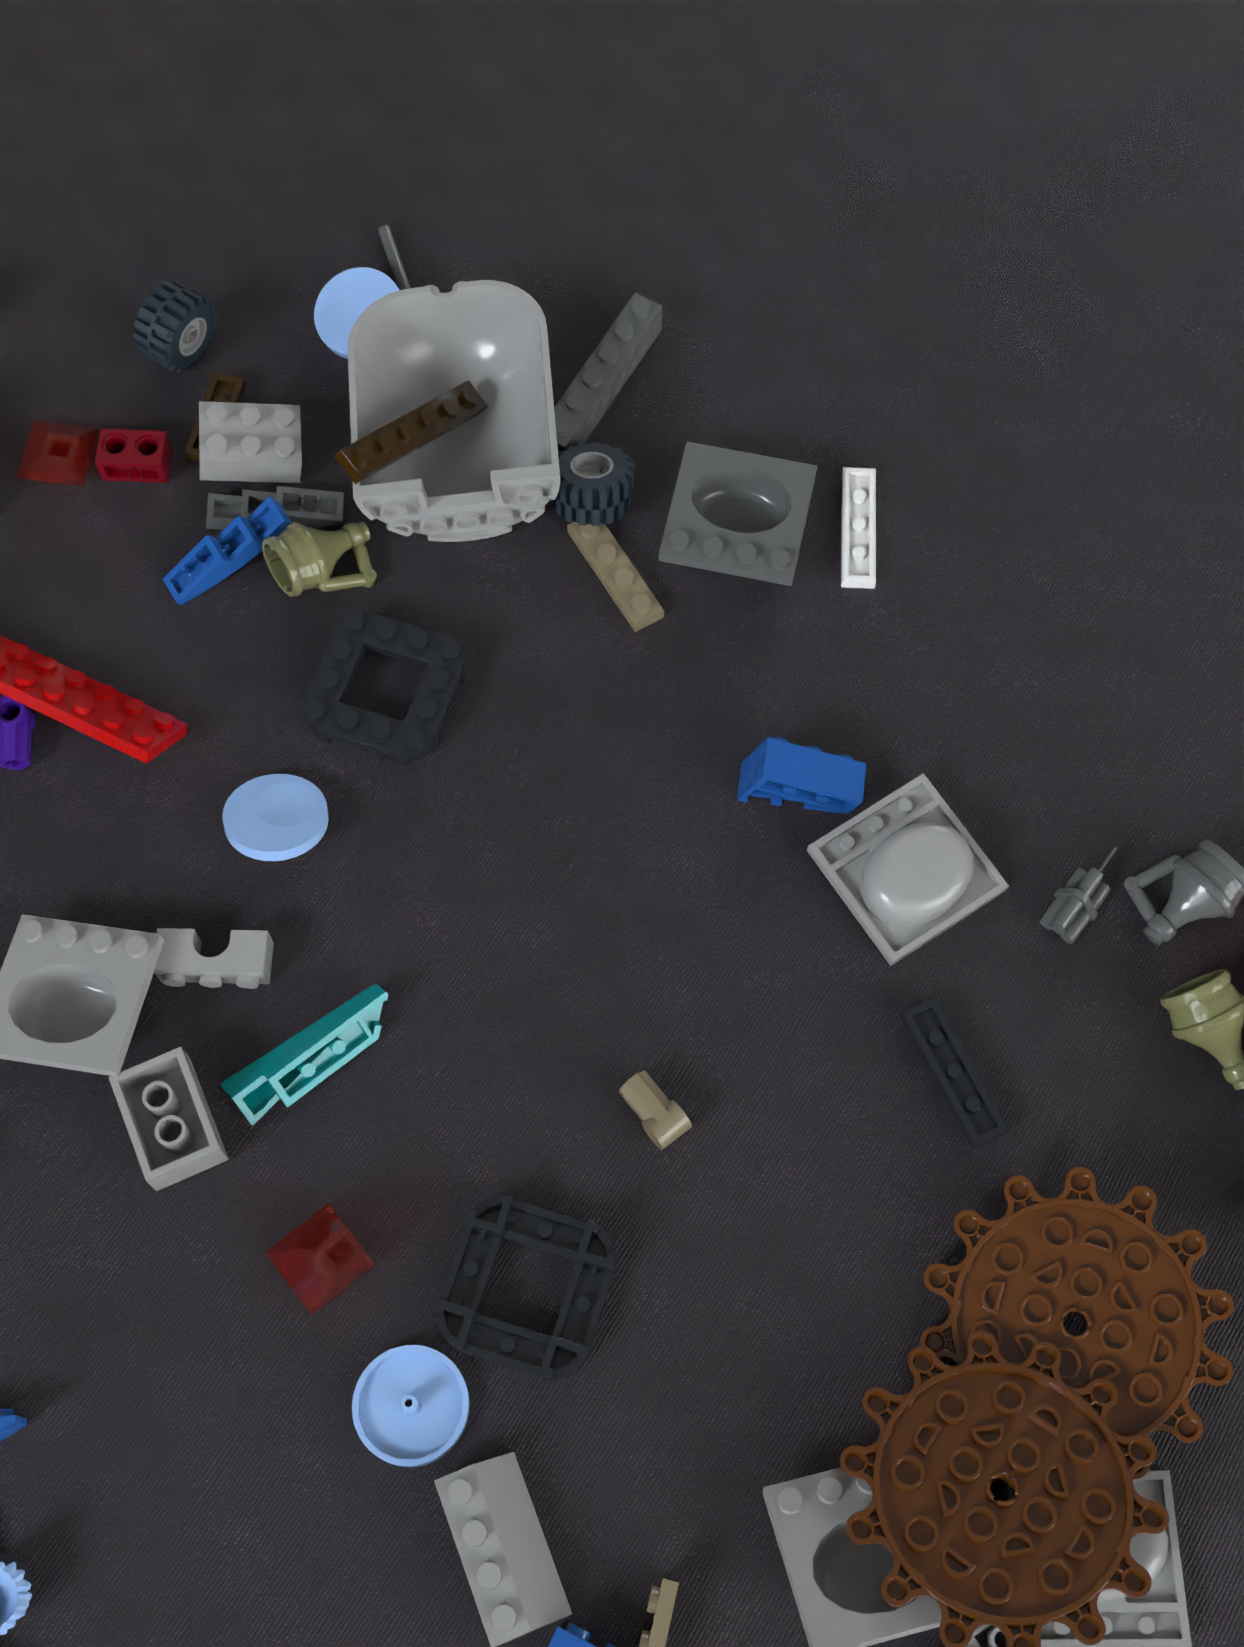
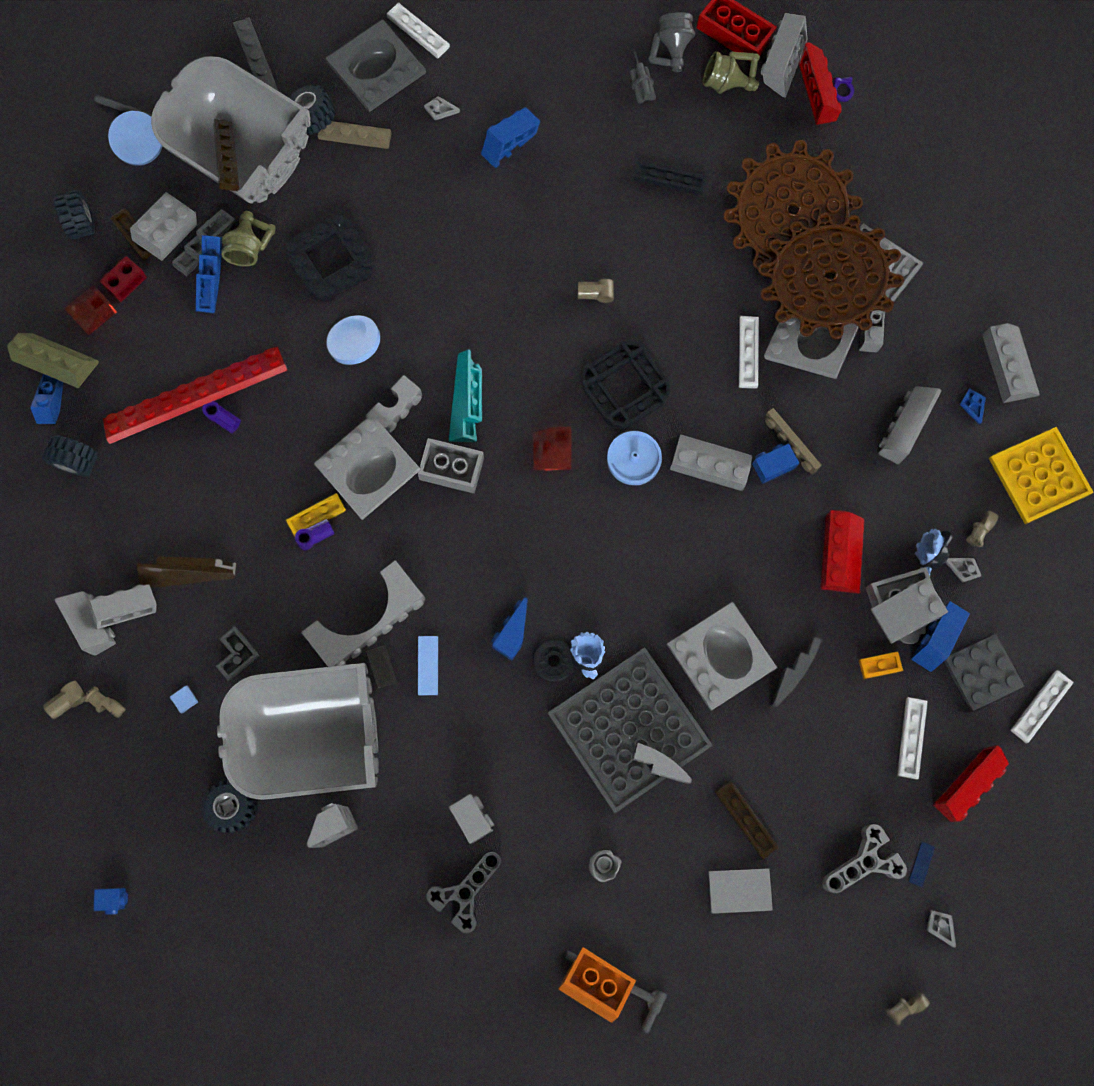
camera: 55 degrees left, 10 degrees up
(758, 1453) = (748, 351): none -> white tile
(761, 650) = (440, 108): none -> light grey piece
(907, 869) = (577, 129): light grey piece -> none

